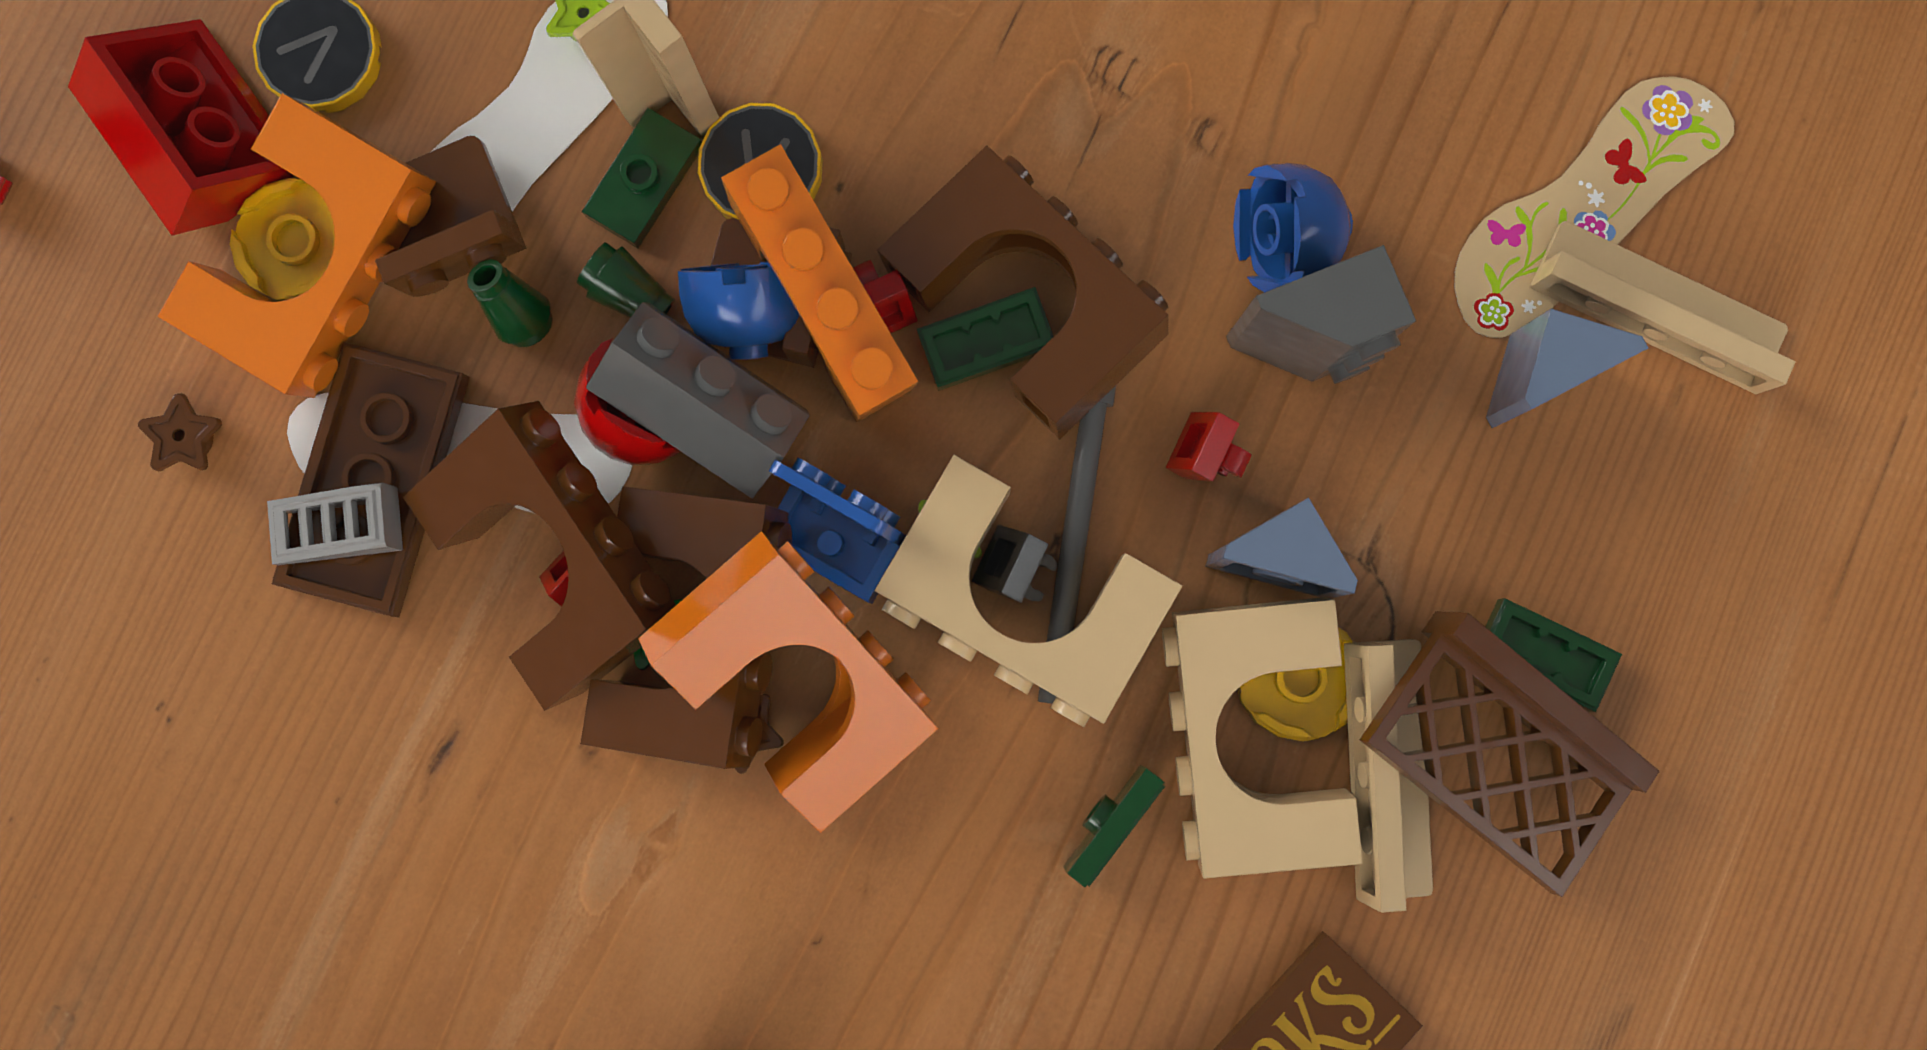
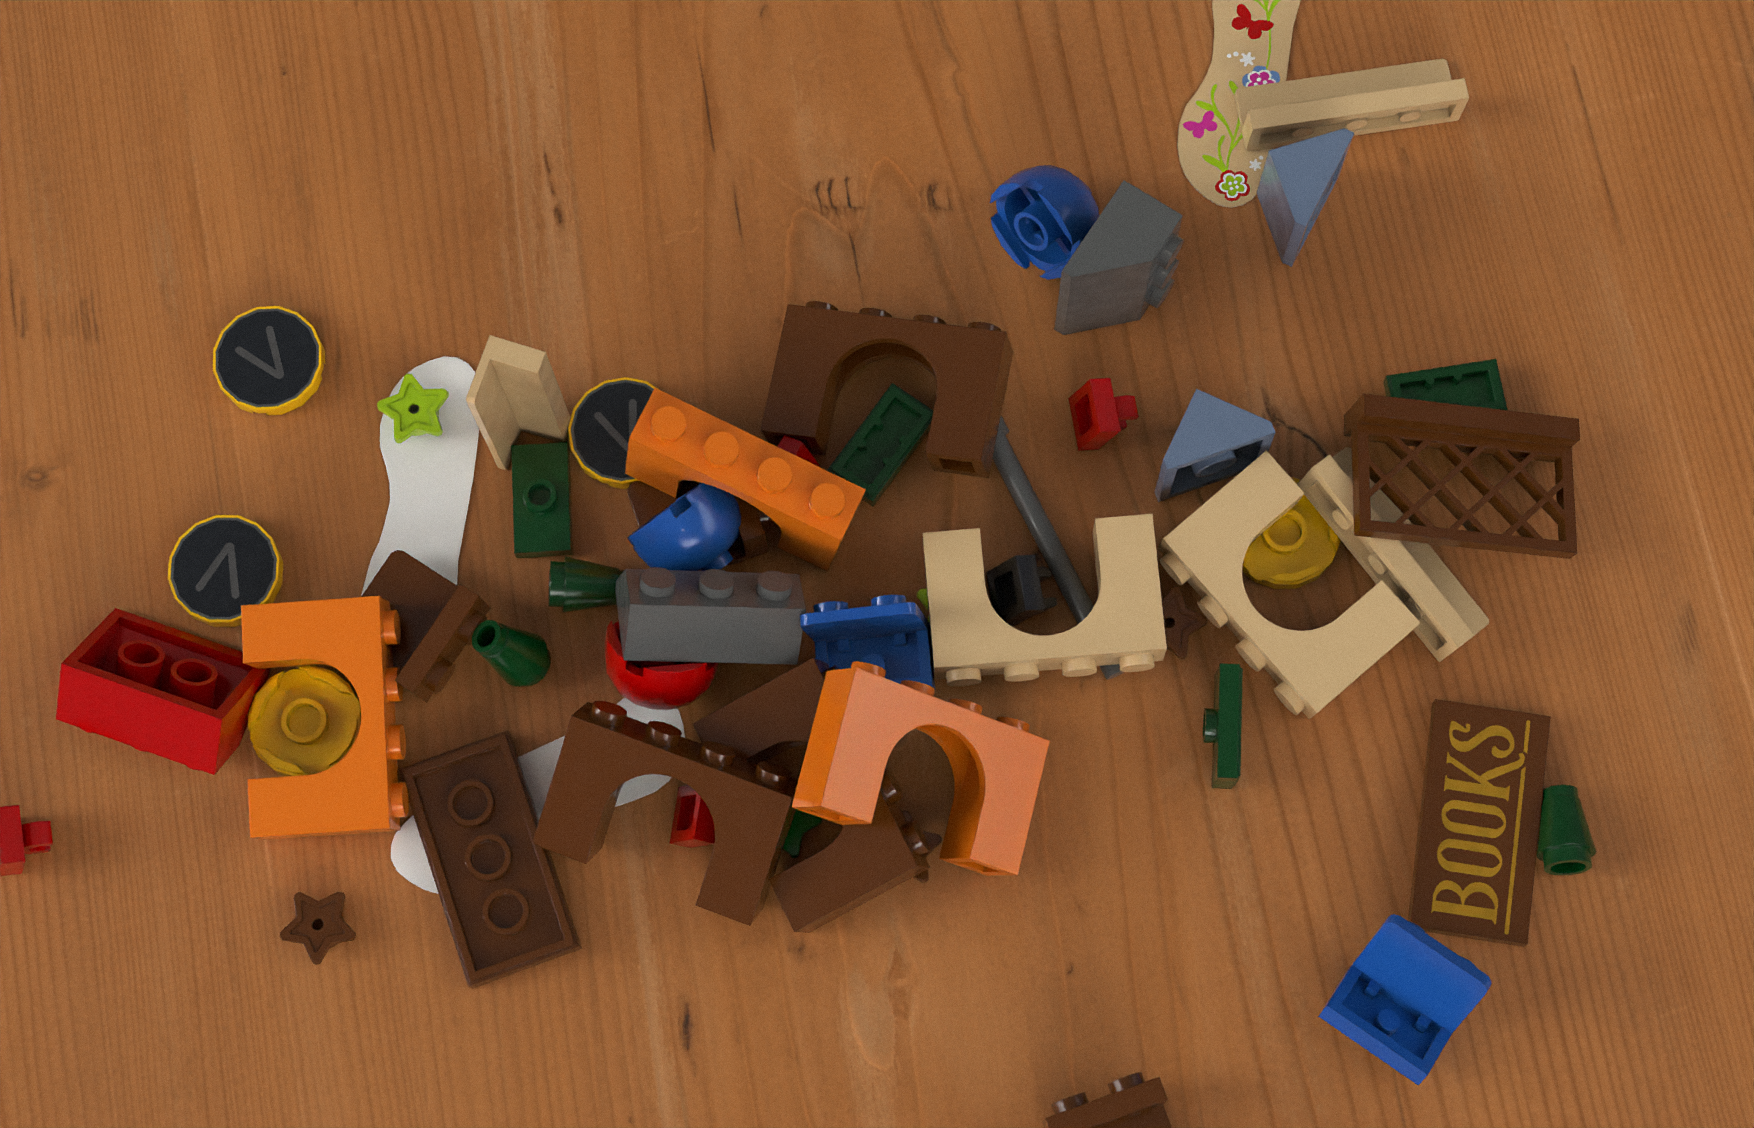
camera: 35 degrees left, 10 degrees down
(382, 523) = (474, 888): light grey slope -> none
(1147, 699) = (1184, 620): none -> reddish brown plate

